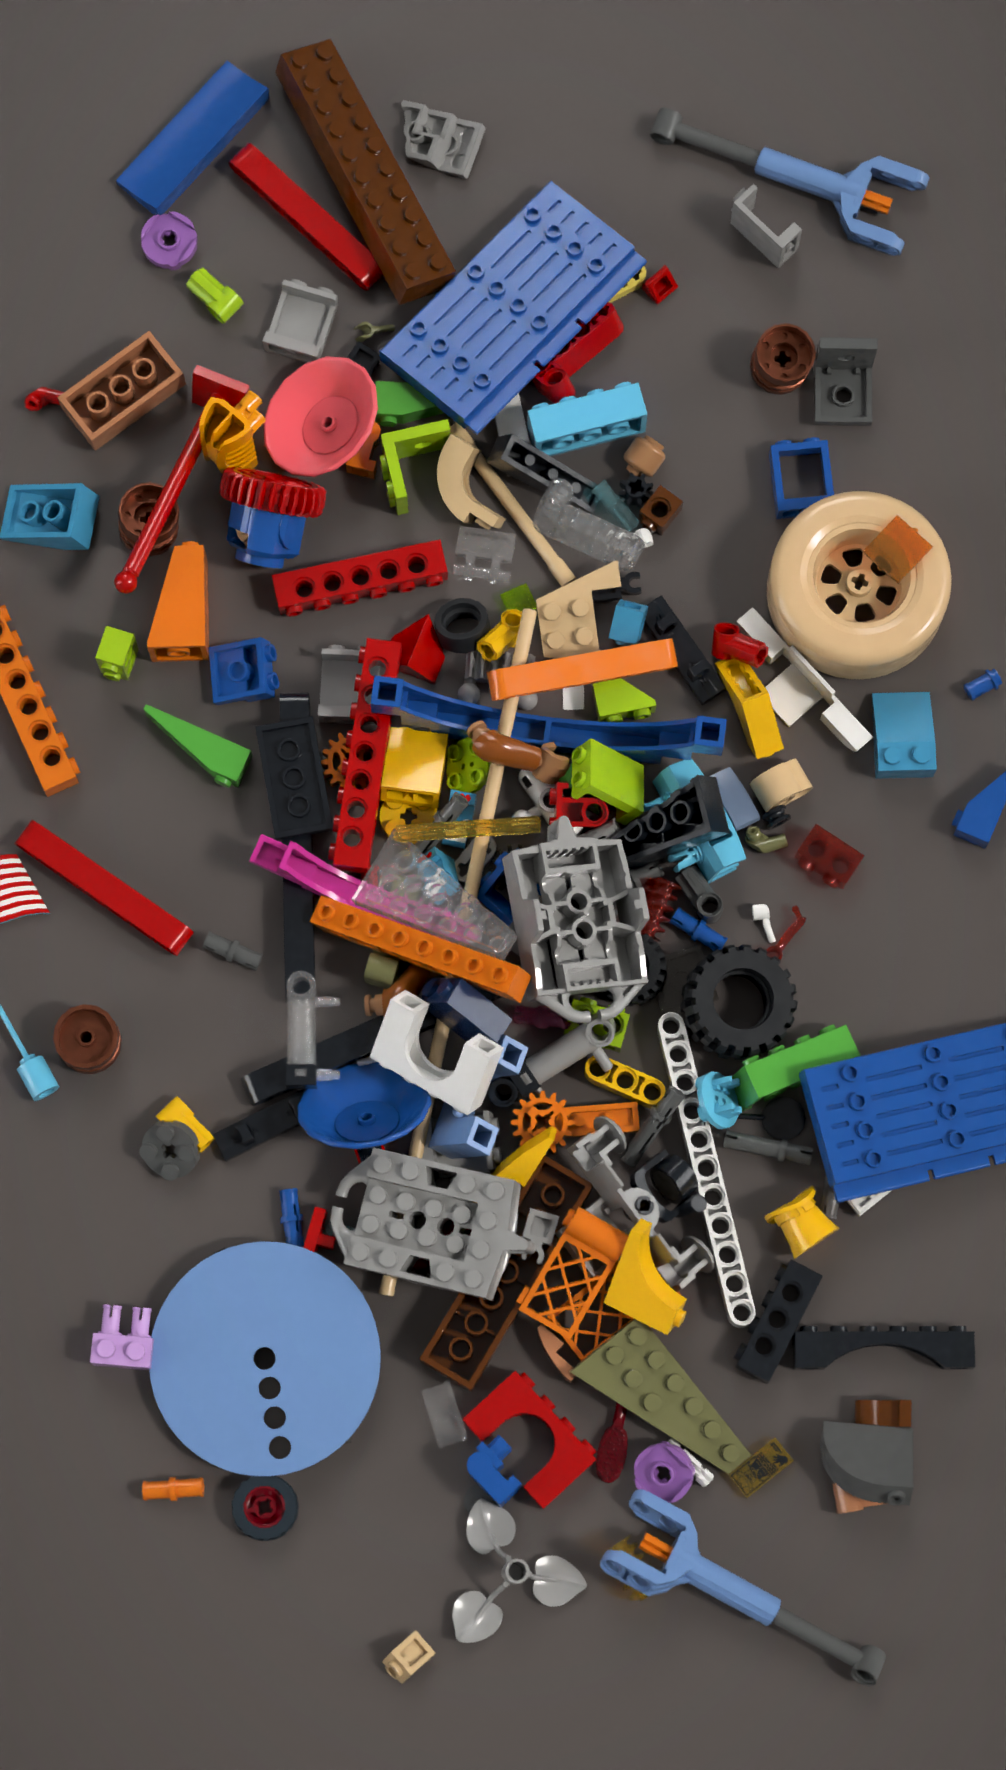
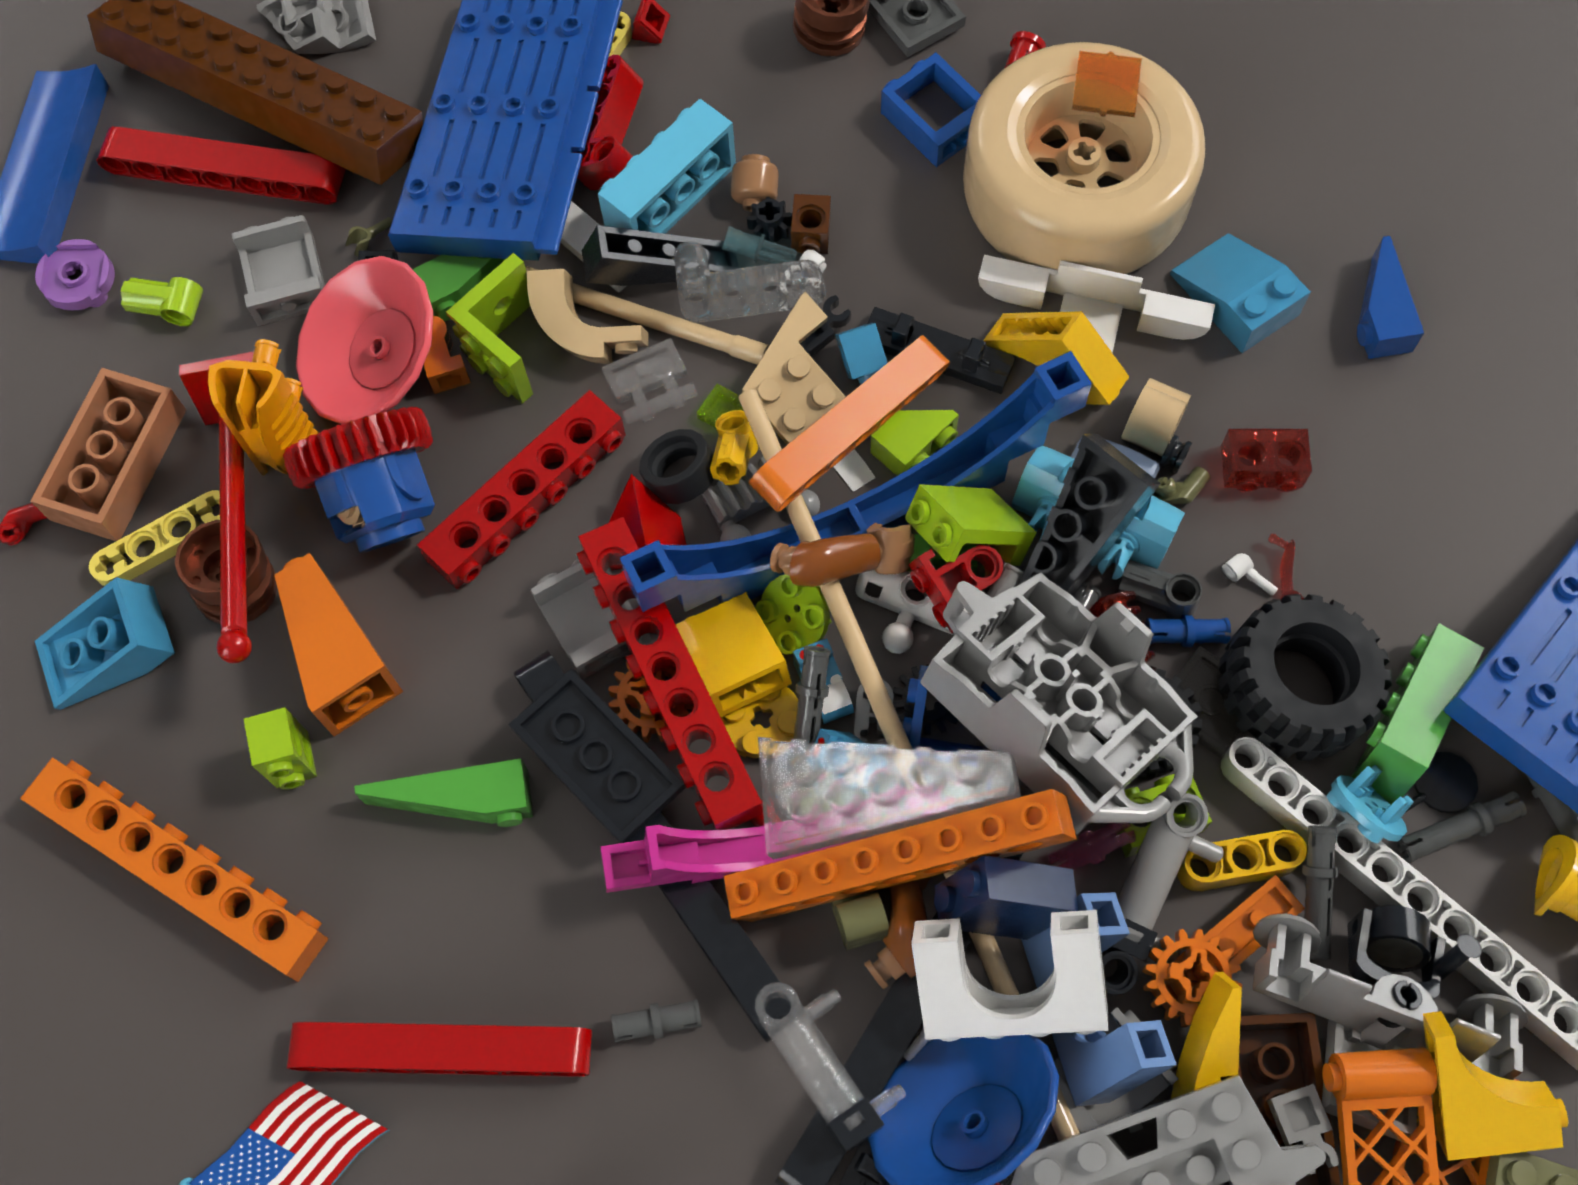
camera: 30 degrees left, 10 degrees down
(123, 461) = (158, 531): none -> light yellow beam
(243, 671) = (452, 675): blue plate -> none
(468, 828) = (849, 678): clear yellow axle -> none
(731, 644) = (988, 305): red piece -> none
(890, 476) = (1023, 44): none -> red bush
(983, 684) = (1280, 184): blue pin -> none

